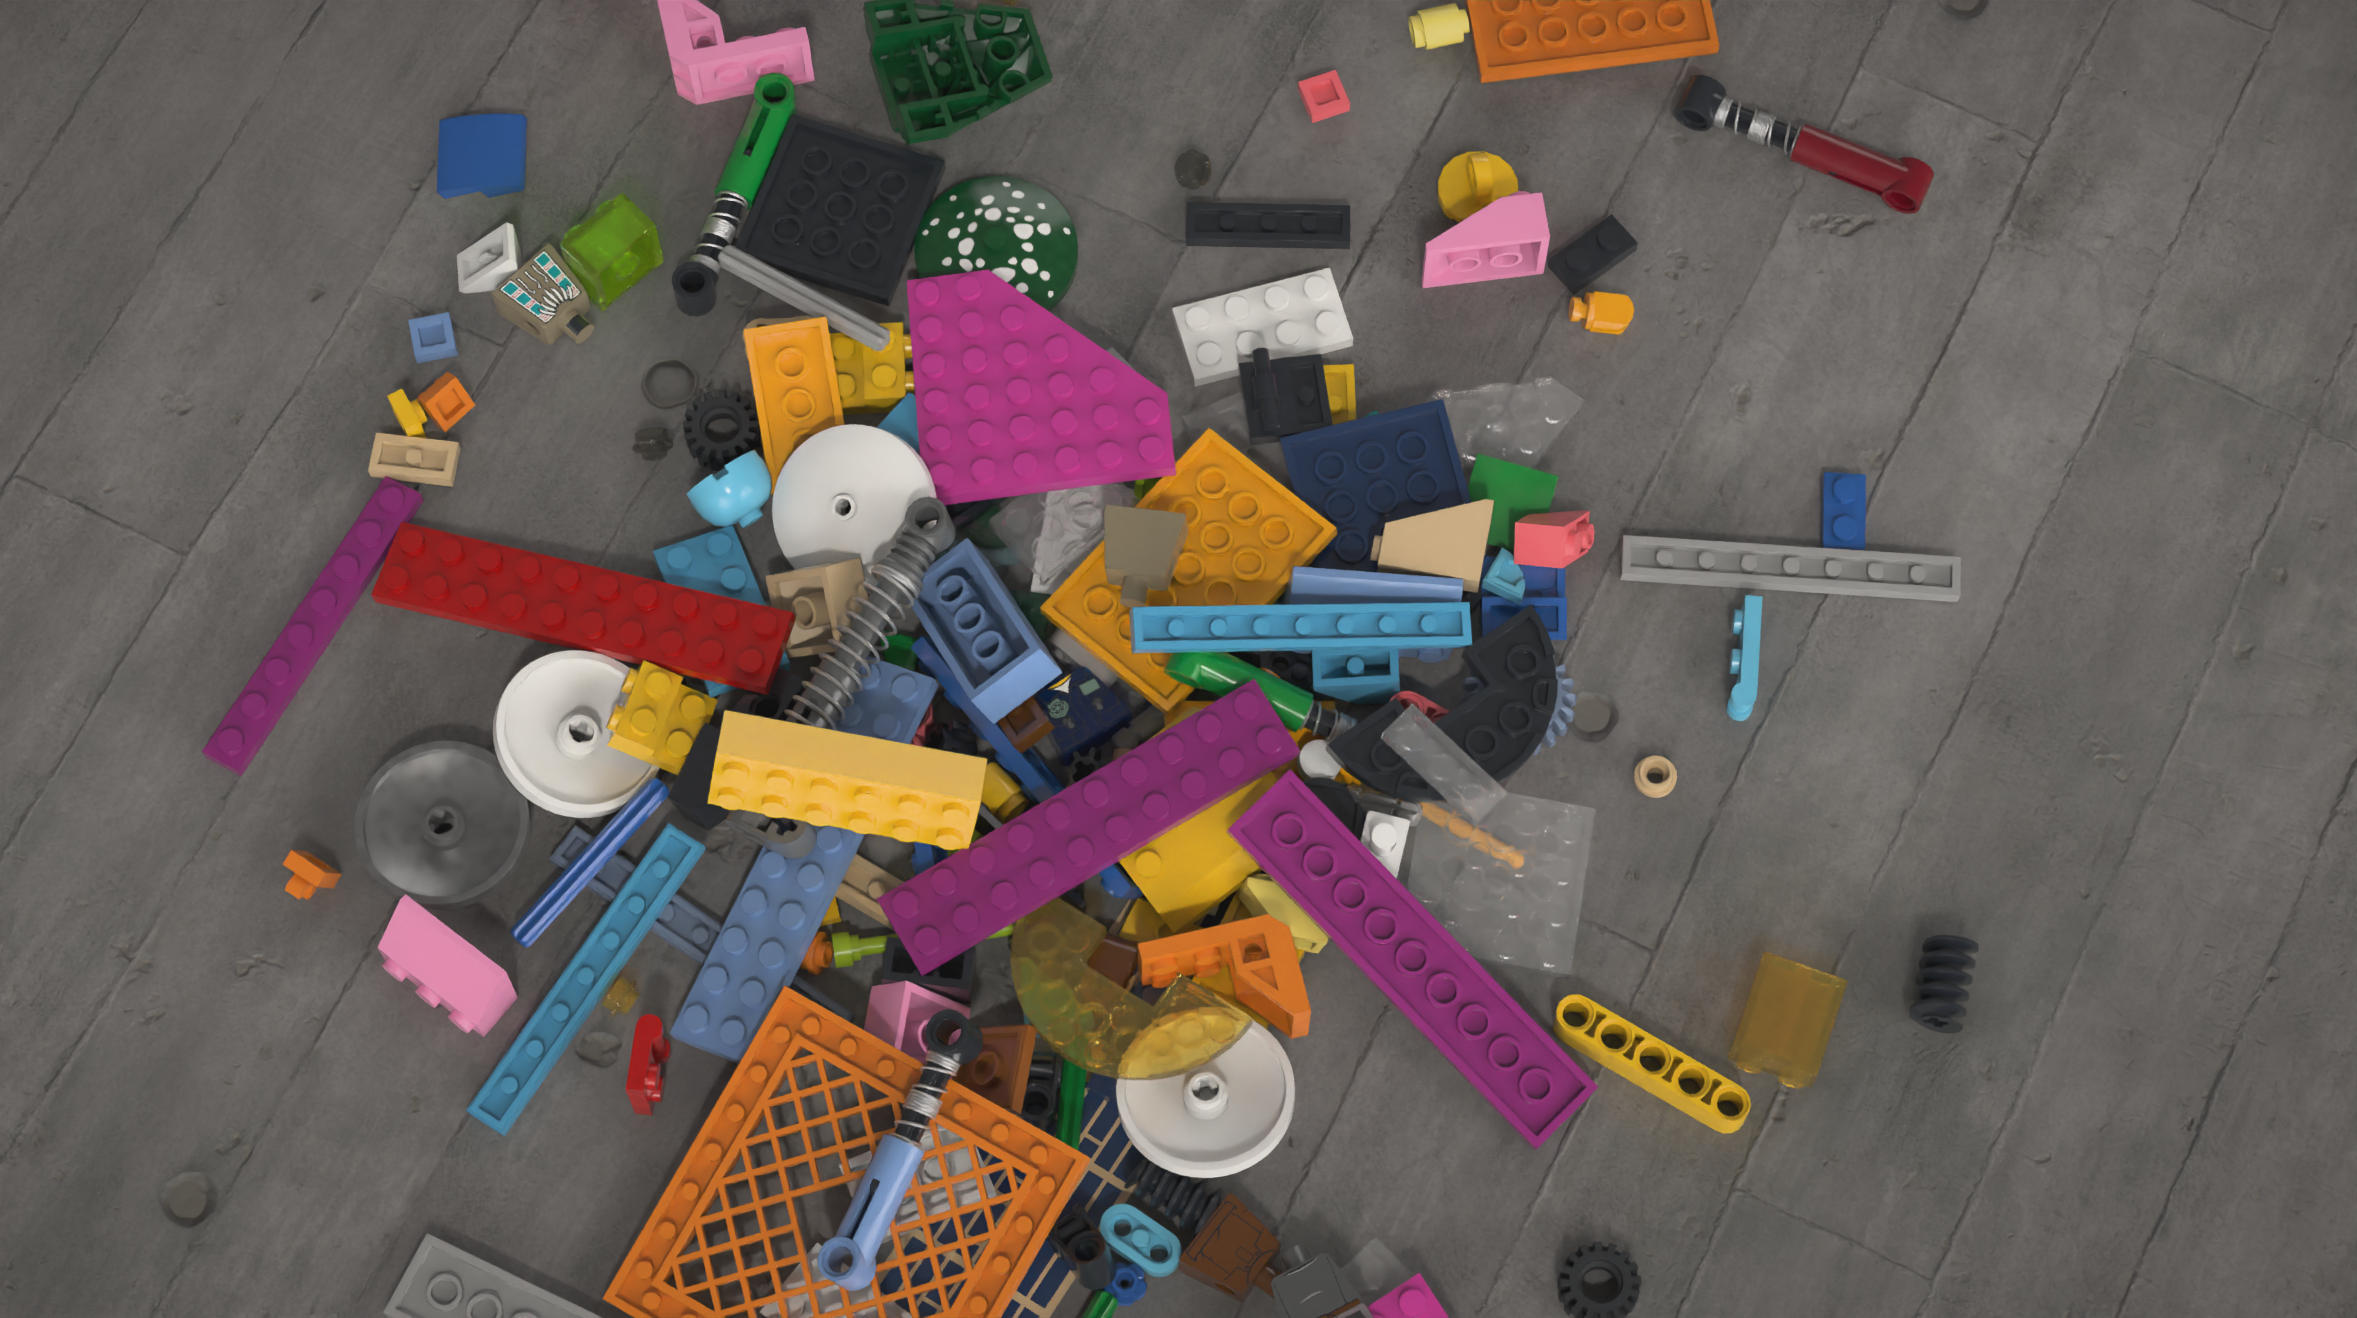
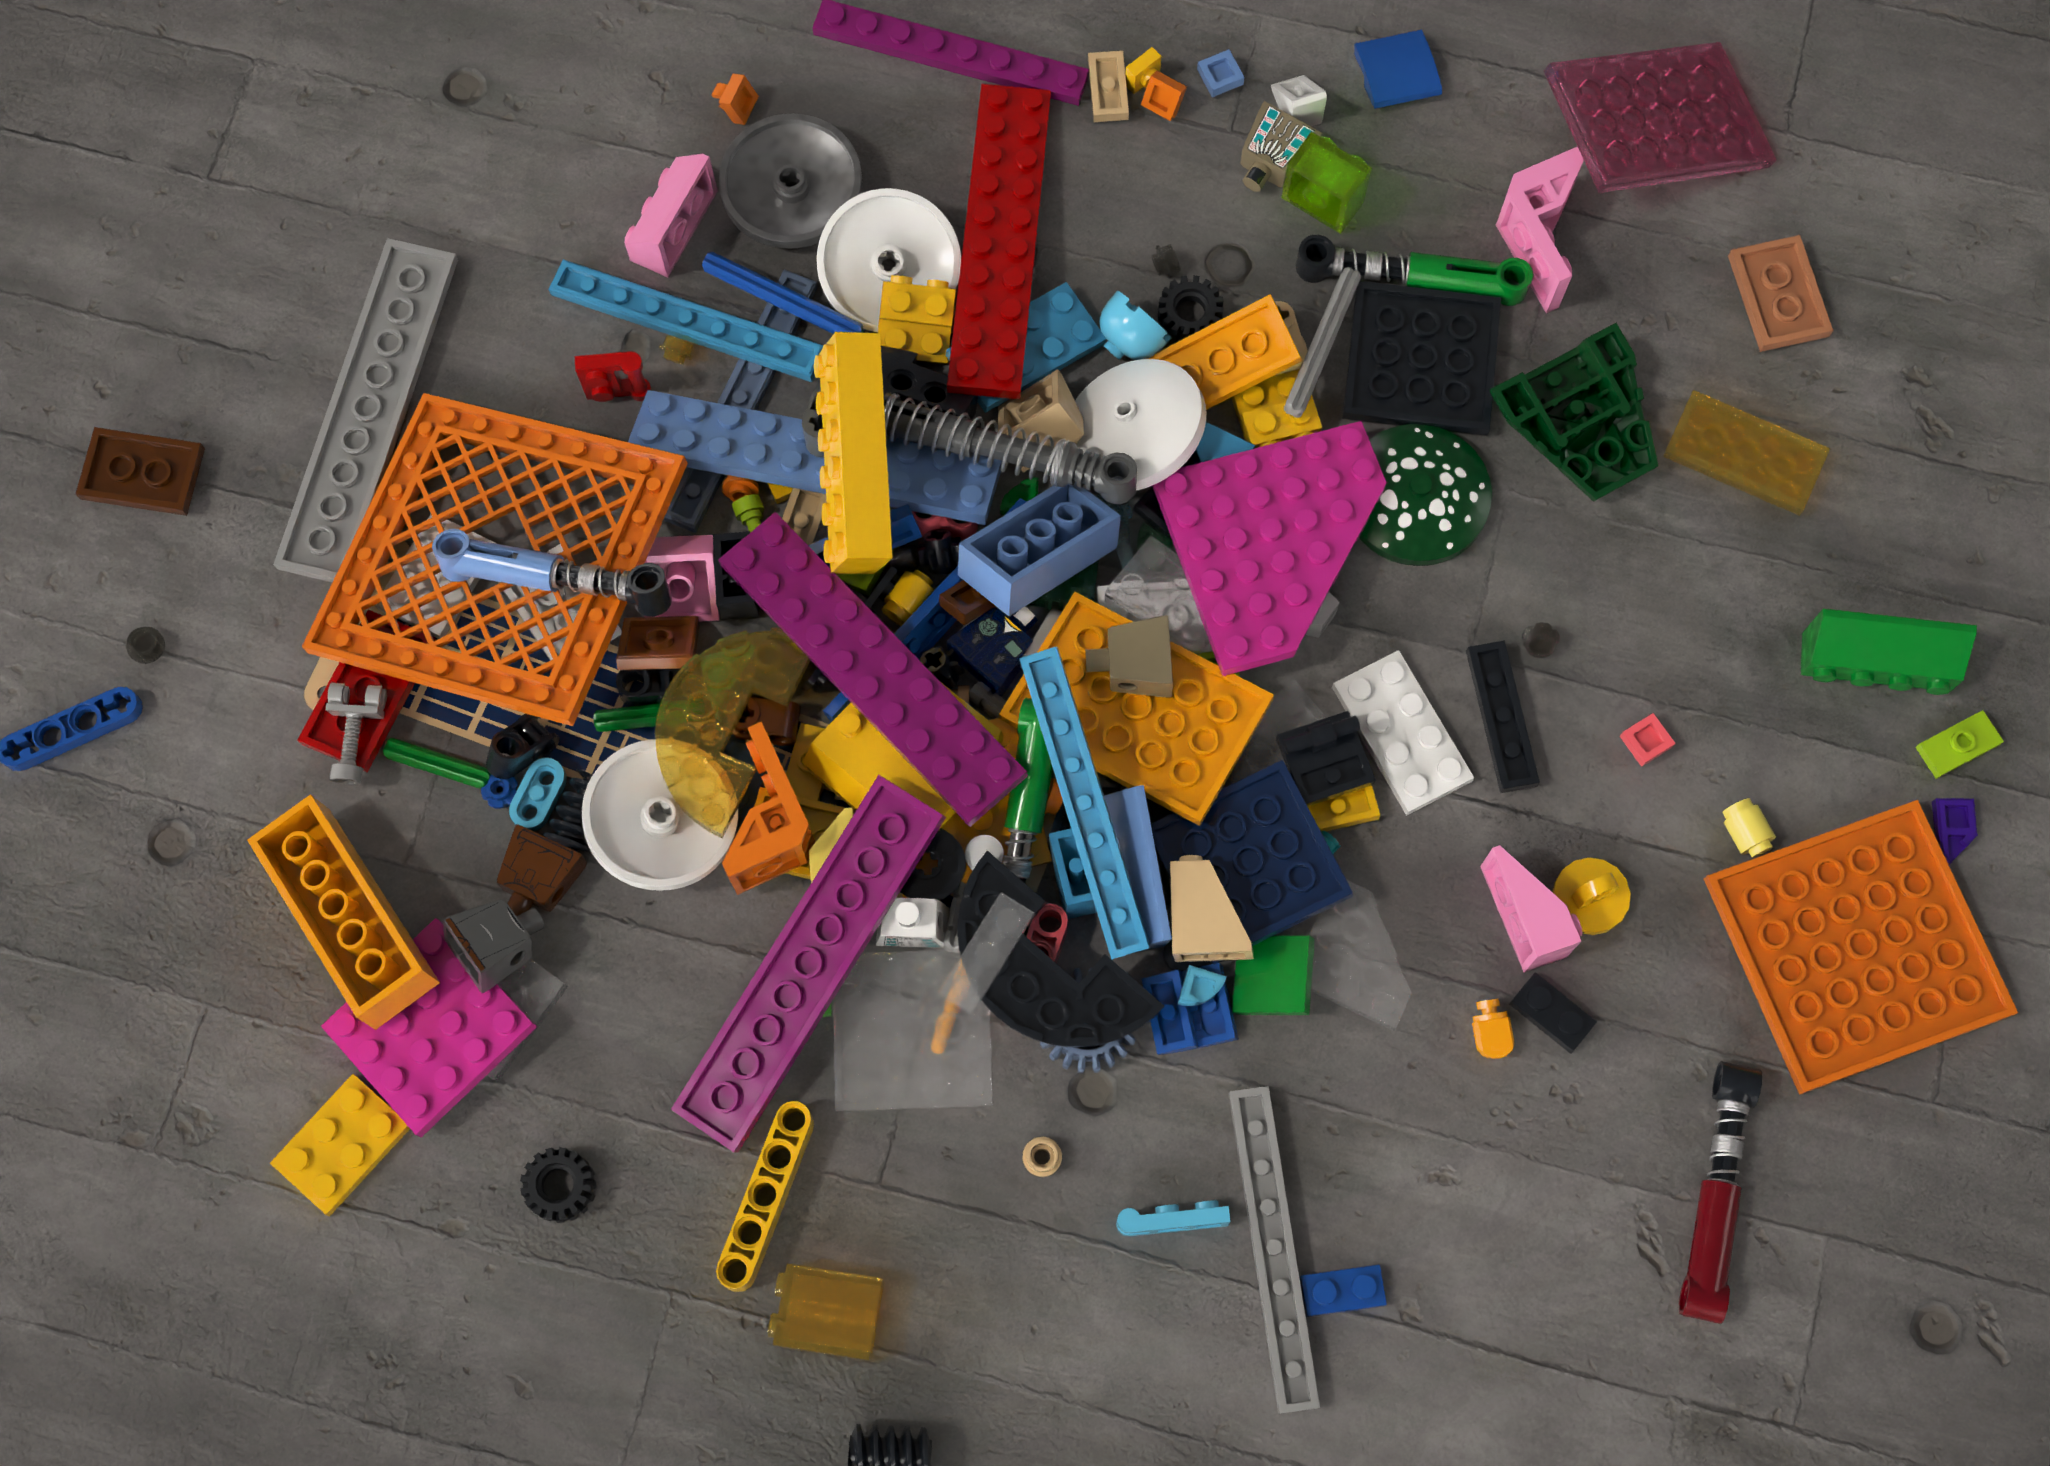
camera: 80 degrees right, 5 degrees up
(1552, 538) = (1243, 1019): coral slope -> none

